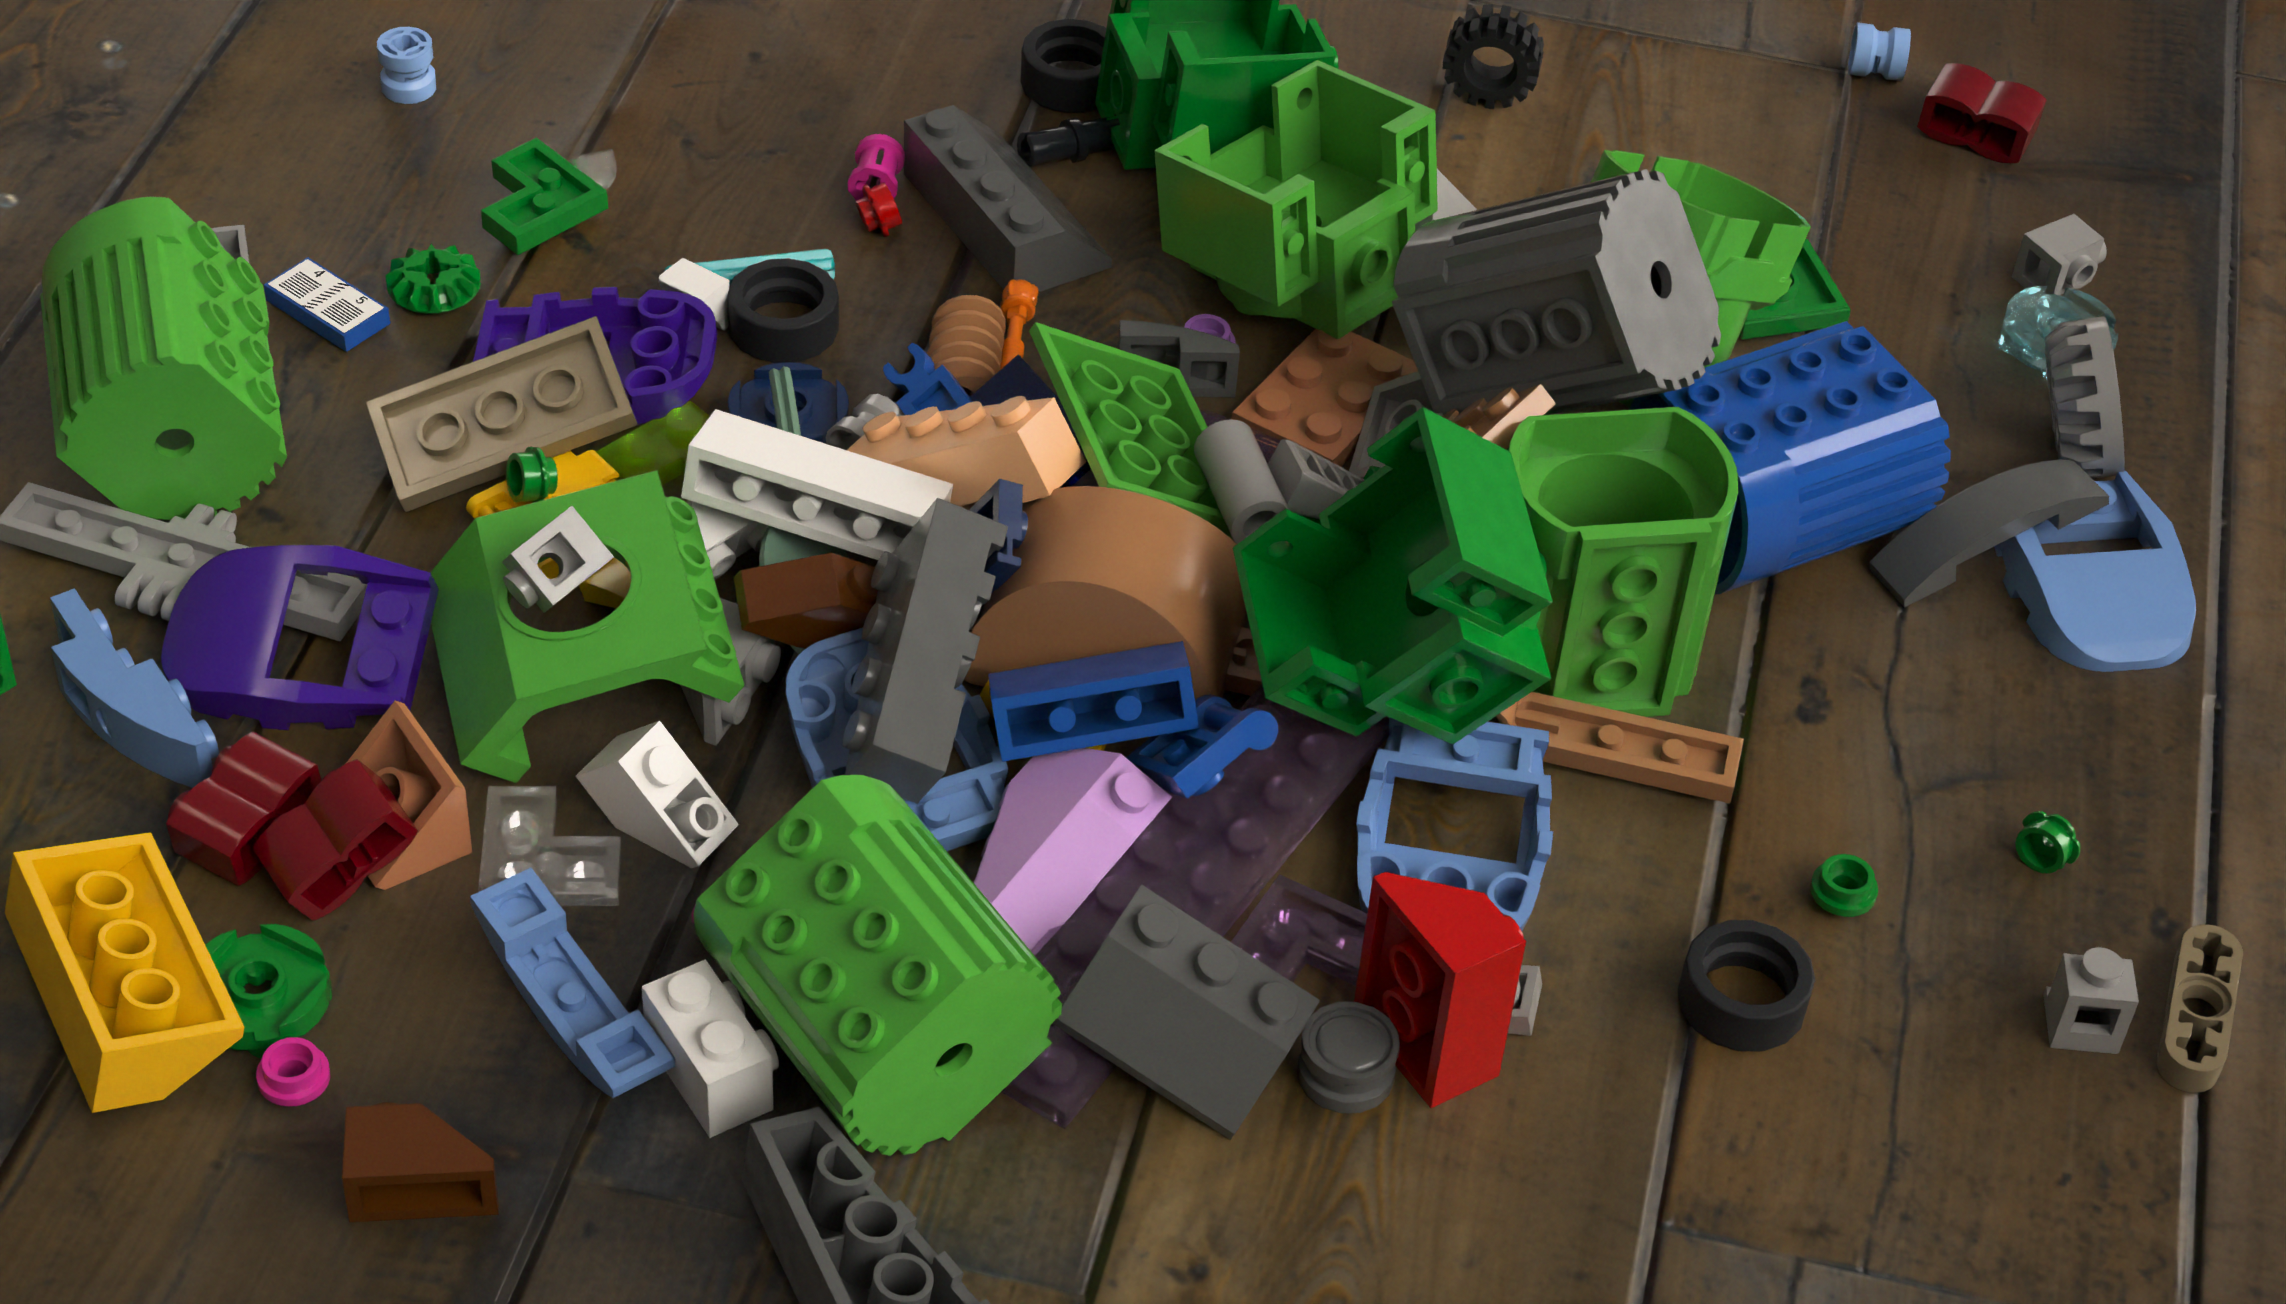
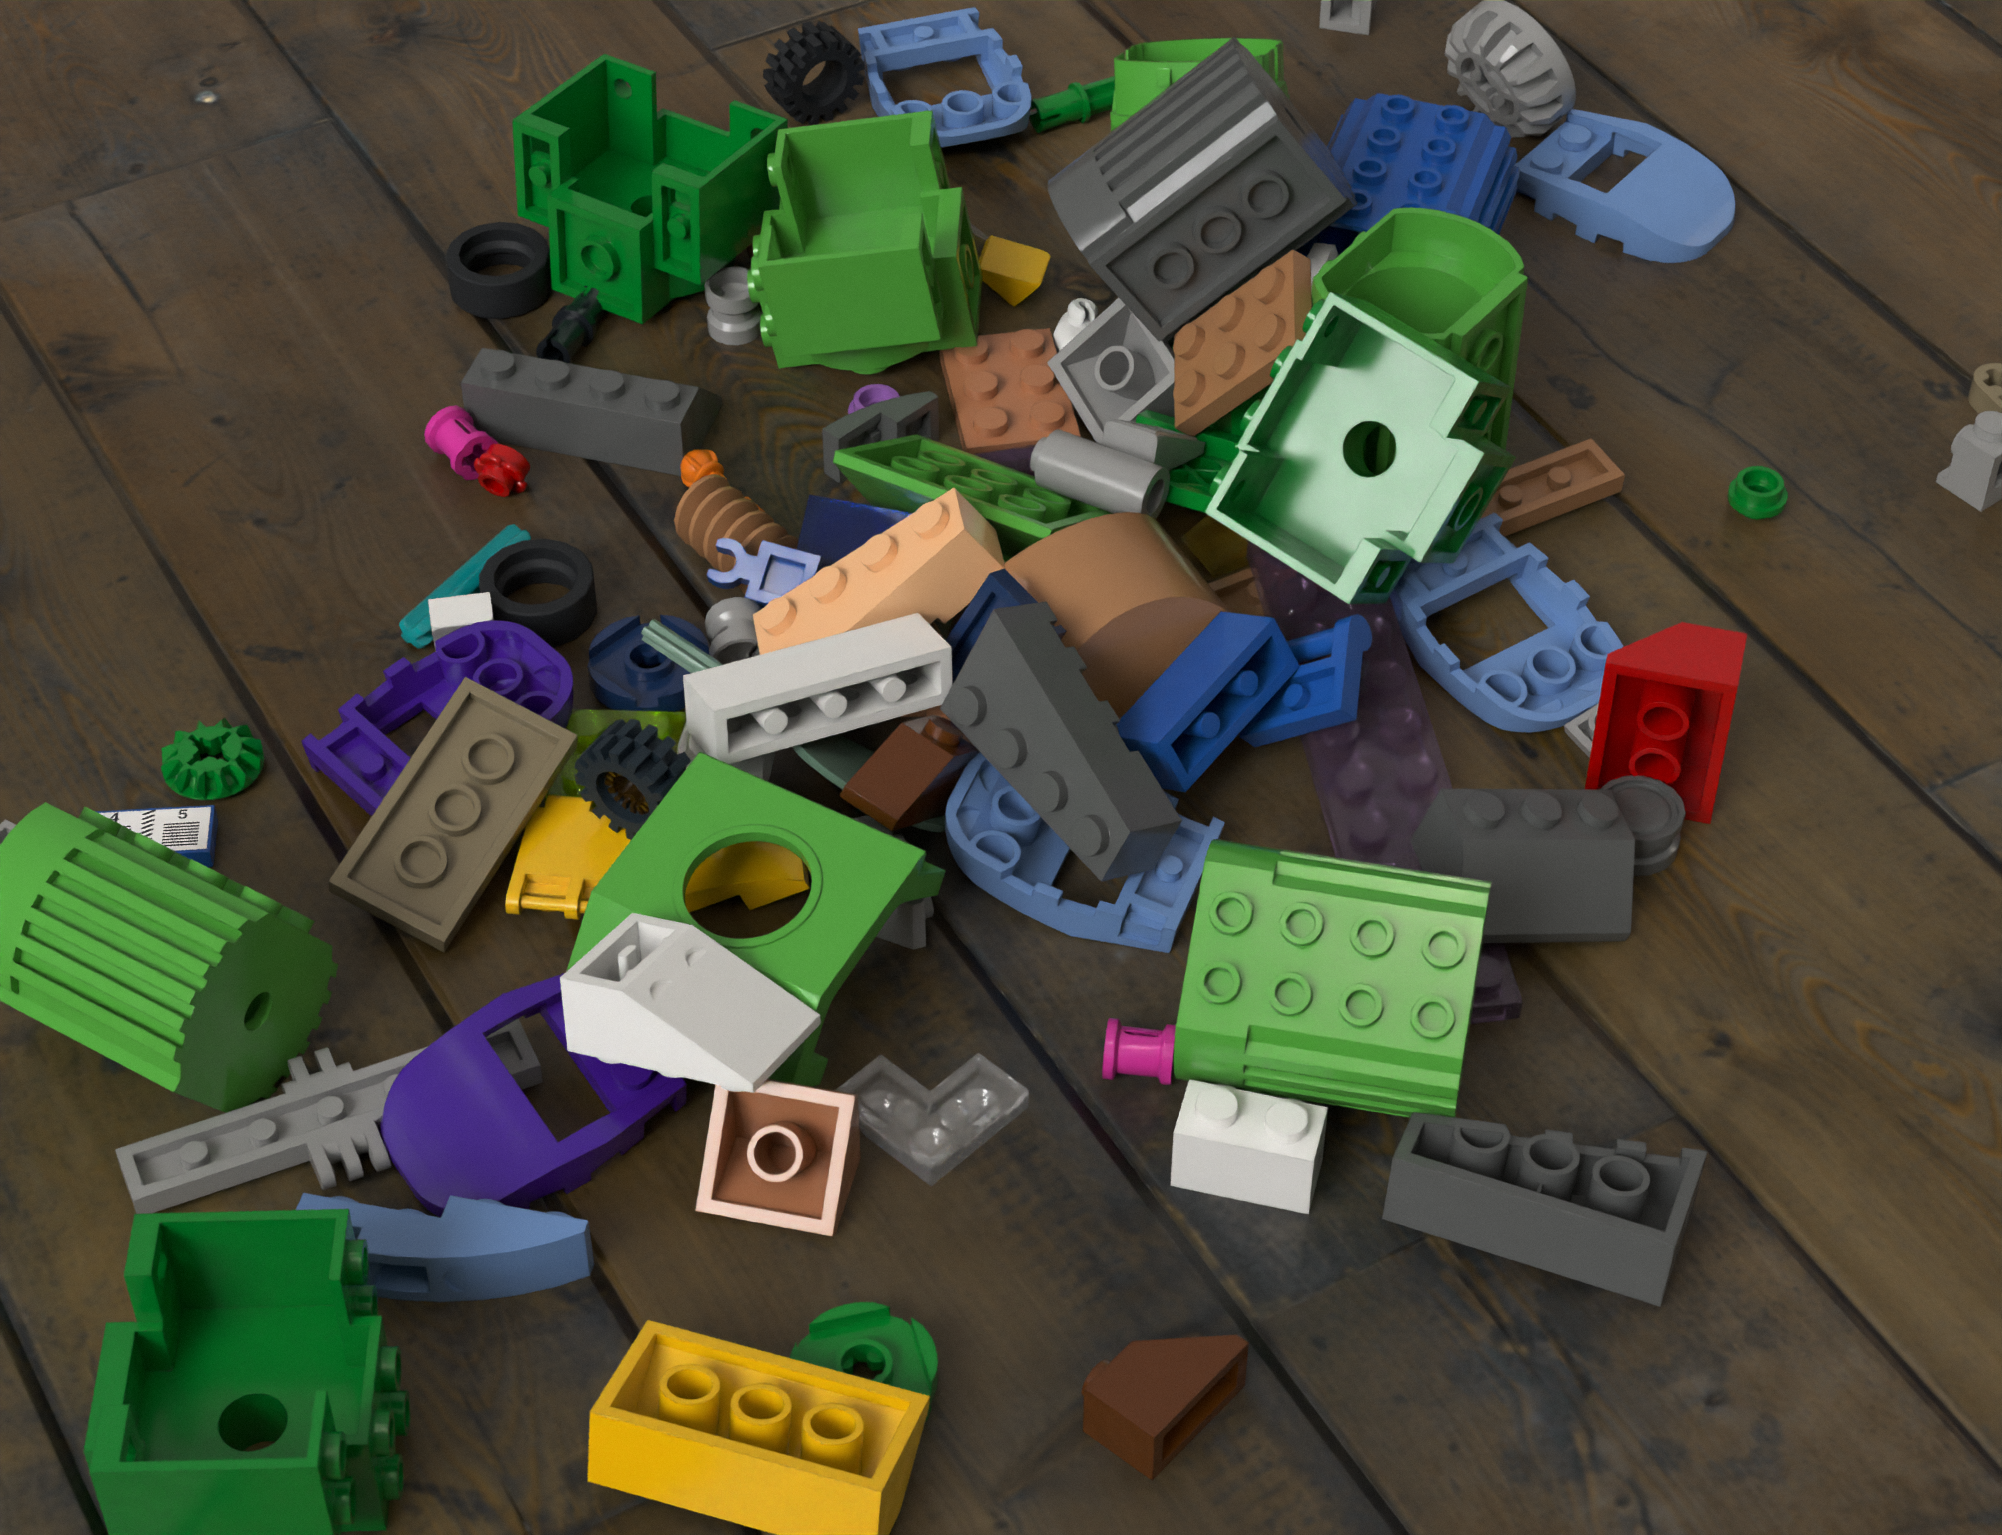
camera: 40 degrees left, 0 degrees up
(232, 808) = (666, 1252): dark red brick -> none
(292, 1058) = (970, 1394): dark pink plate -> none
(334, 839) = (781, 1216): dark red brick -> none
(415, 634) = (680, 1006): none -> white slope
(531, 475) = (548, 842): green plate -> none
(545, 197) = (222, 627): green plate -> none
(564, 987) = (1090, 1195): medium blue slope -> none
(570, 545) = (729, 868): brick -> none
(598, 165) = (230, 585): clear hinge -> none
(618, 447) = (628, 773): none -> black bush
(657, 795) = (956, 1003): white slope -> none
(1061, 834) = (1278, 792): lavender wedge -> none
(1303, 927) = (1512, 756): plate -> none
(1602, 80) = (949, 37): none -> medium blue slope
(1737, 1023) = (1796, 568): black tyre -> none
(1979, 518) = (1546, 194): dark grey slope -> none
(2034, 315) = (1403, 45): clear light blue plate -> none
(2047, 842) = (1832, 391): green plate -> none

